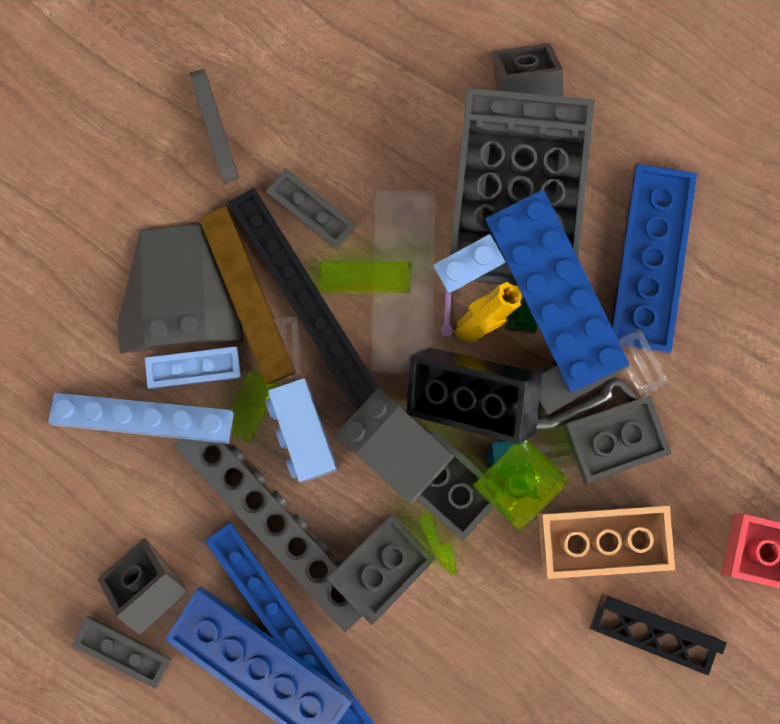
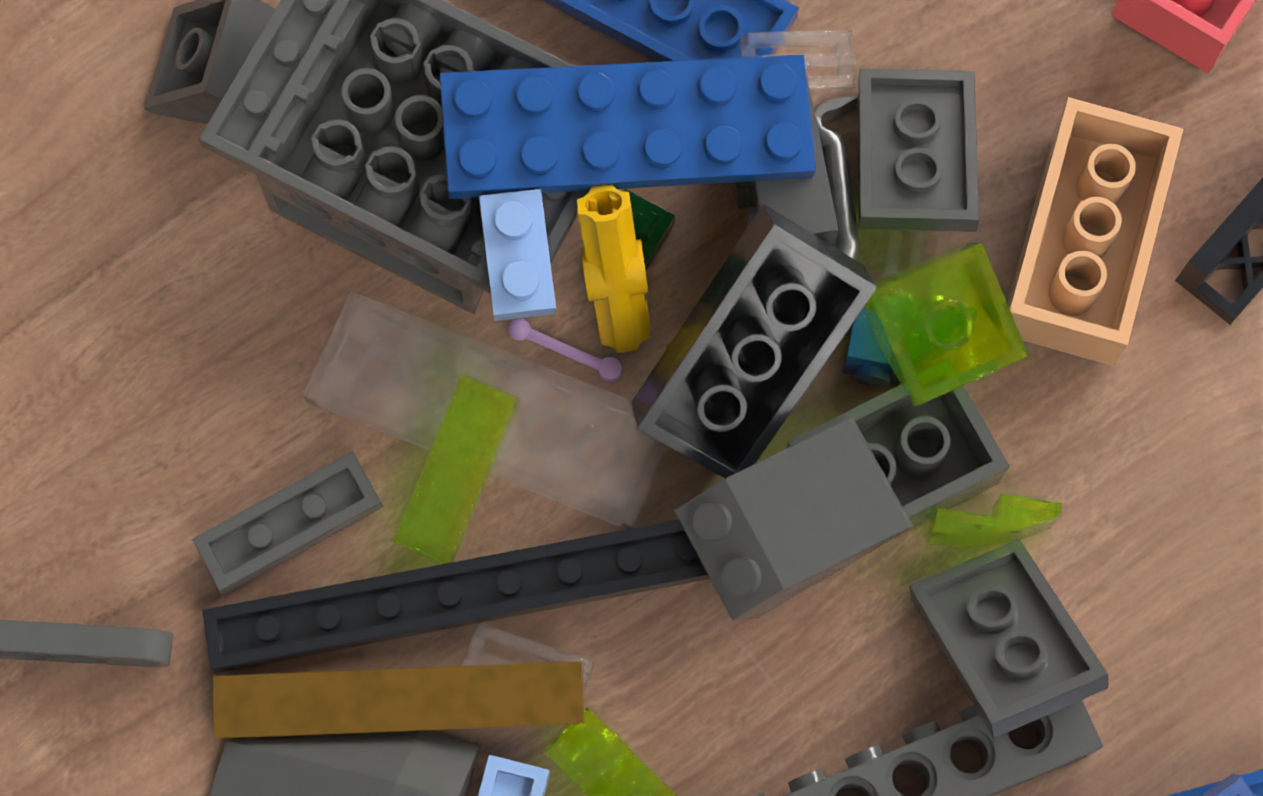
camera: 65 degrees left, 10 degrees down
(301, 431) = (700, 685): light blue brick -> none

